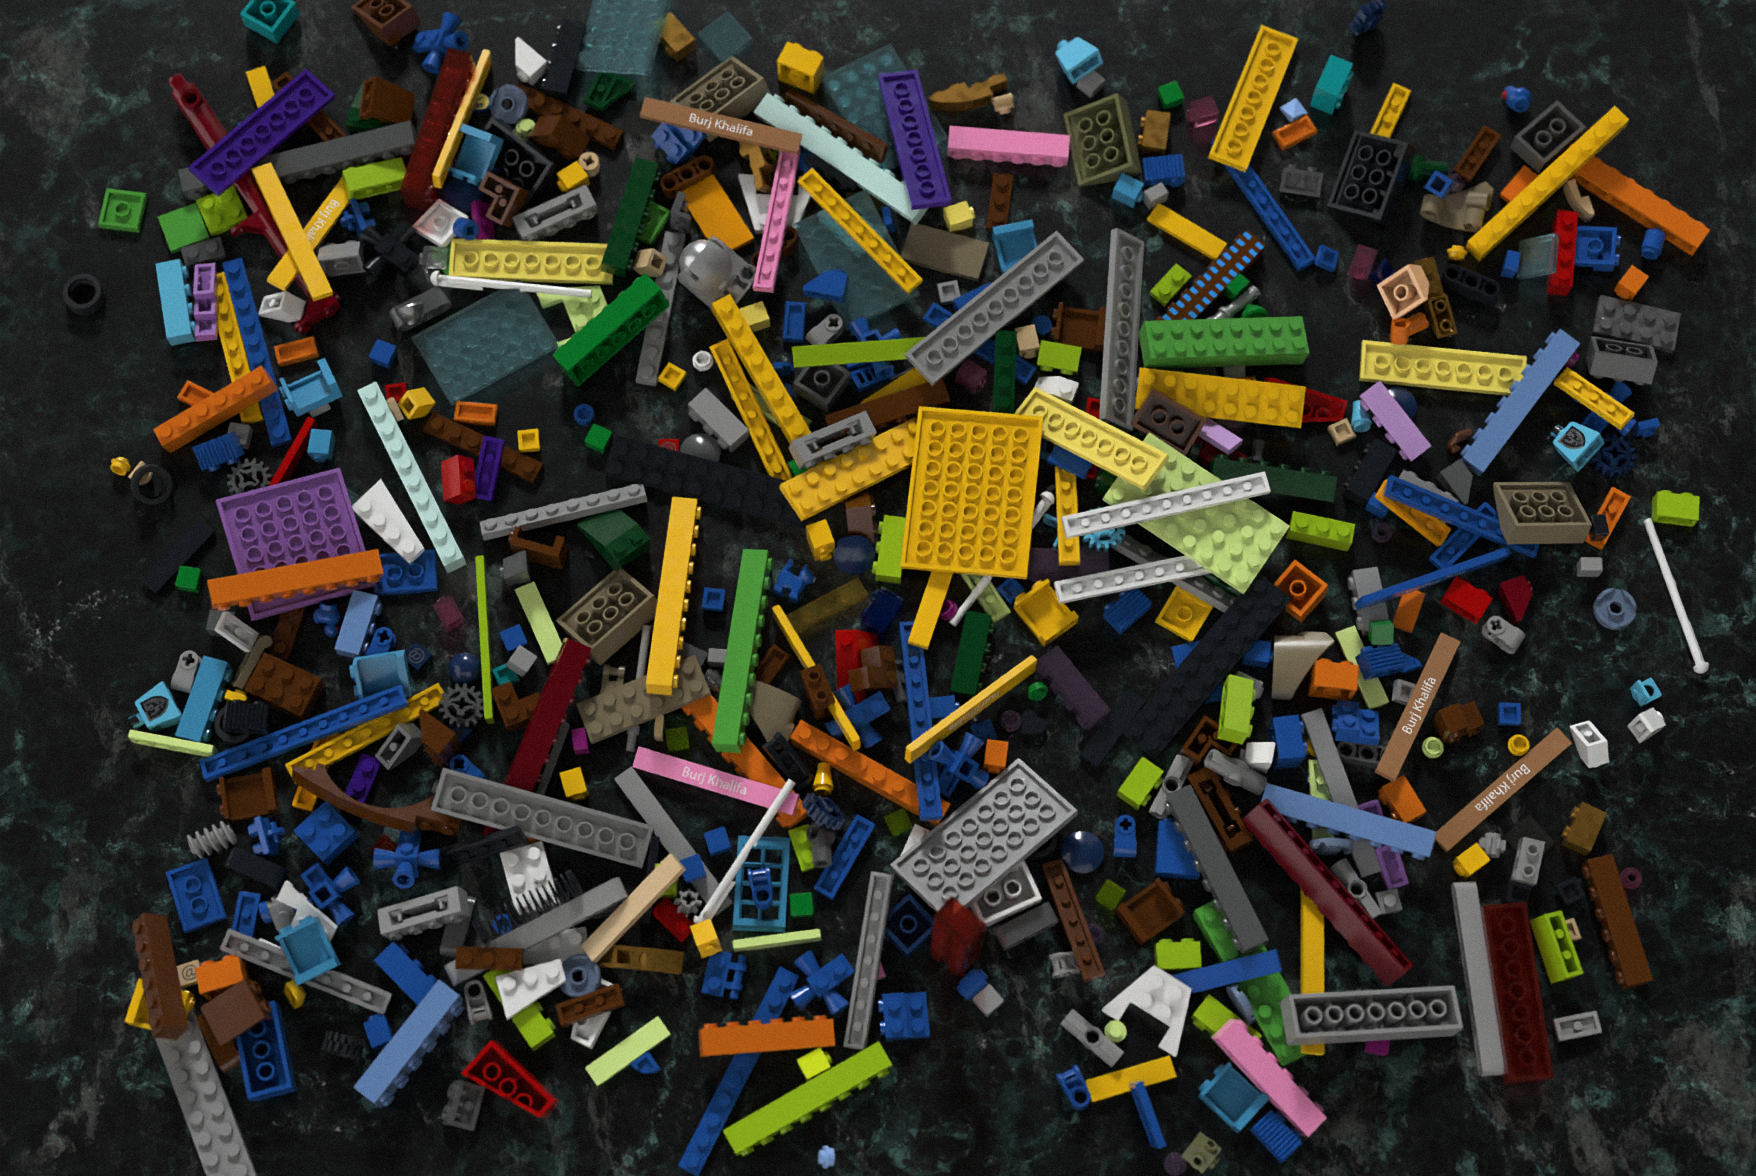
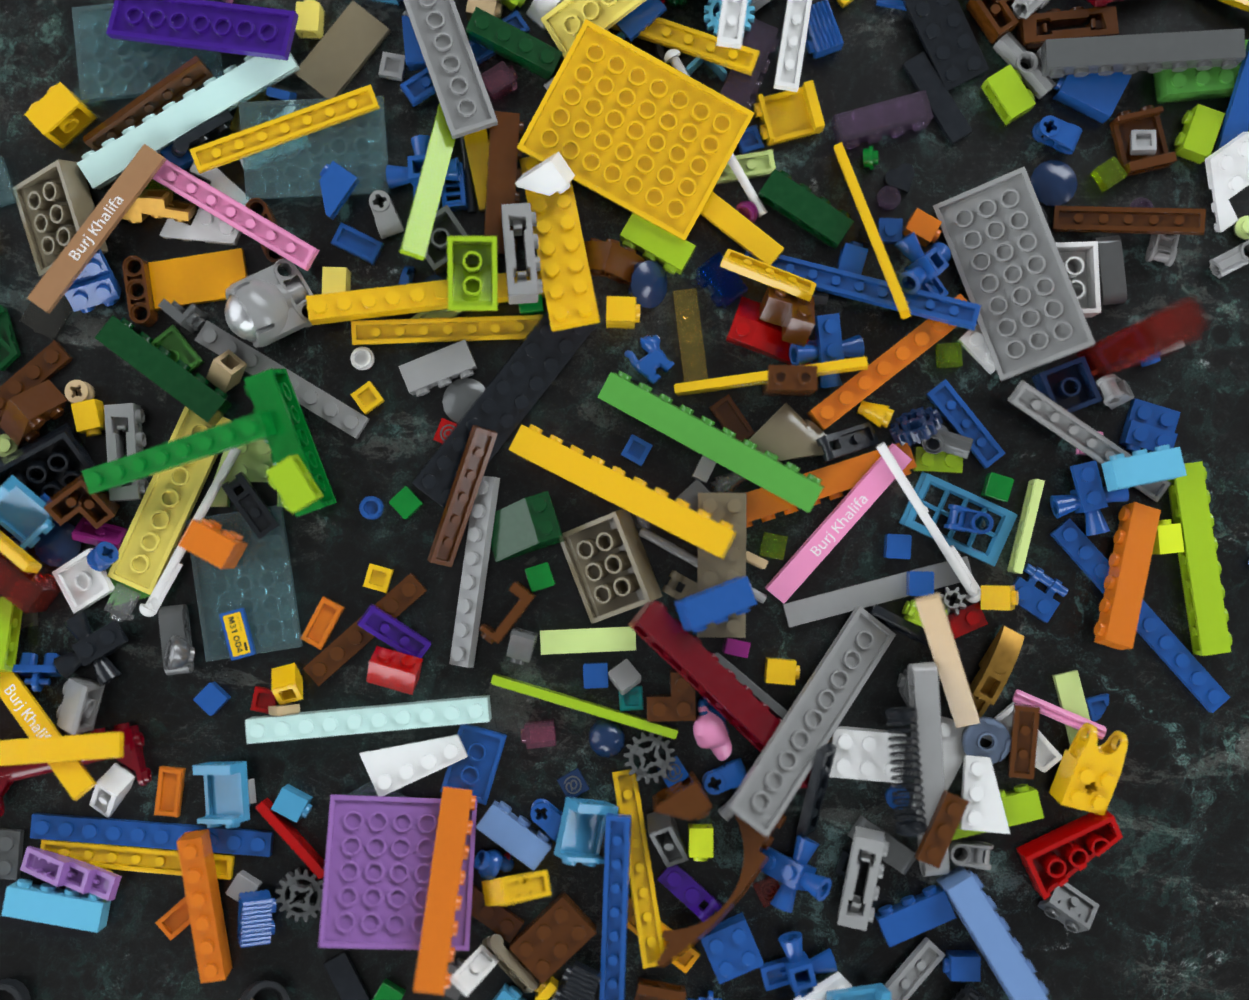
camera: 70 degrees left, 15 degrees up
(311, 629) = (516, 888): none -> yellow window
(406, 775) = (700, 842): none -> neon yellow brick
(442, 351) = (237, 634): none -> tile
(502, 745) = (711, 730): none -> bright pink hair
(507, 304) = (214, 544): none -> orange brick
(548, 321) = (251, 506): none -> black plate
(569, 250) = (179, 452): none -> green brick
(577, 341) = (294, 484): none -> lime brick
(578, 564) = (539, 577): none -> green piece
(592, 1069) = (1089, 771): none -> yellow brick
(607, 698) = (715, 604): none -> blue brick
(619, 476) = (462, 496): none -> reddish brown plate
(625, 1032) = (1057, 713): none -> bright pink axle
(800, 409) = (472, 273): none -> lime slope
(862, 1010) = (1143, 468): none -> medium azure brick
(898, 641) = (768, 274): none -> yellow tile
(904, 438) = (547, 176): none -> white slope
(921, 966) = (1114, 391): none -> light grey piece
(1148, 910) = (1143, 142): none -> light grey plate

